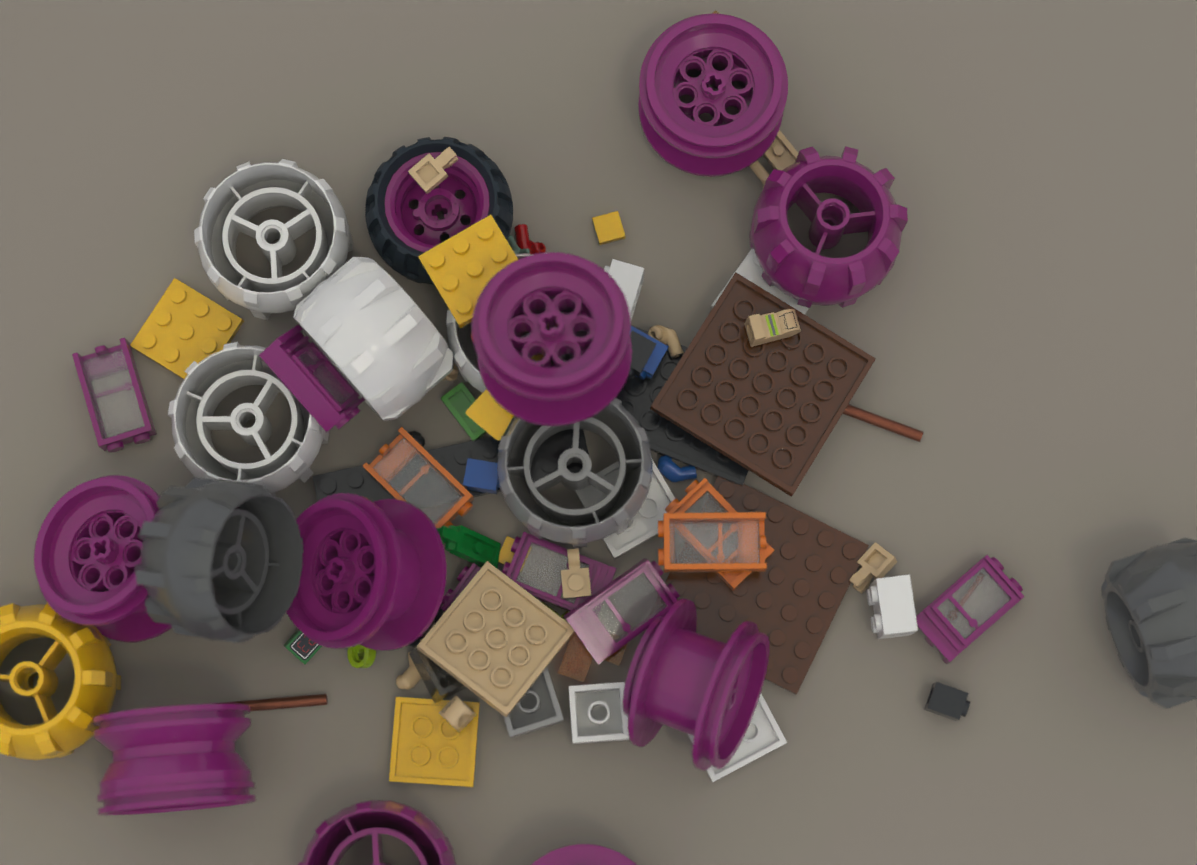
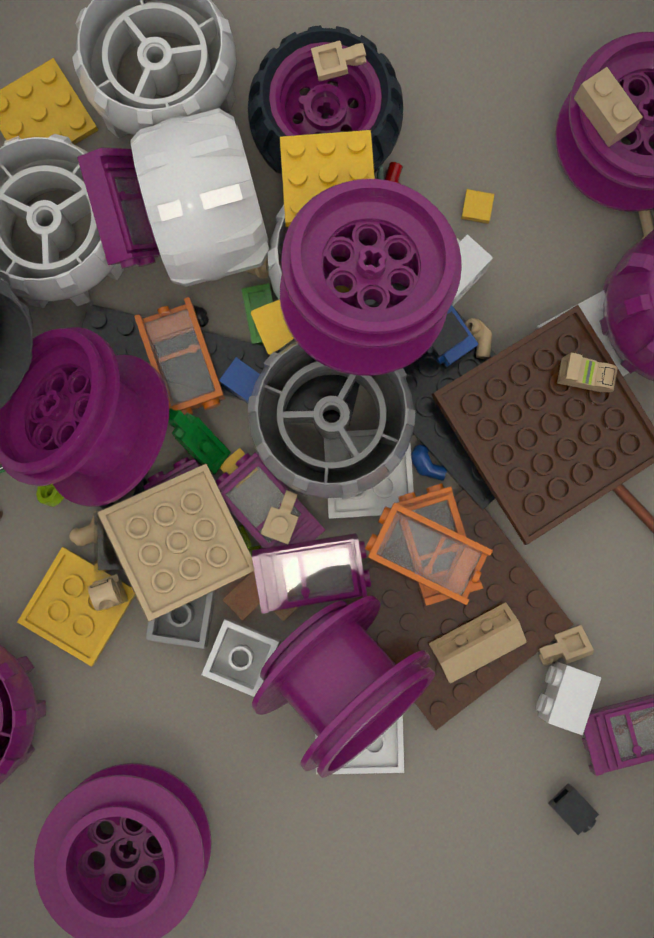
camera: 25 degrees right, 5 degrees up
(677, 103) = (607, 106): none -> tan brick
(795, 599) = (478, 642): none -> tan panel

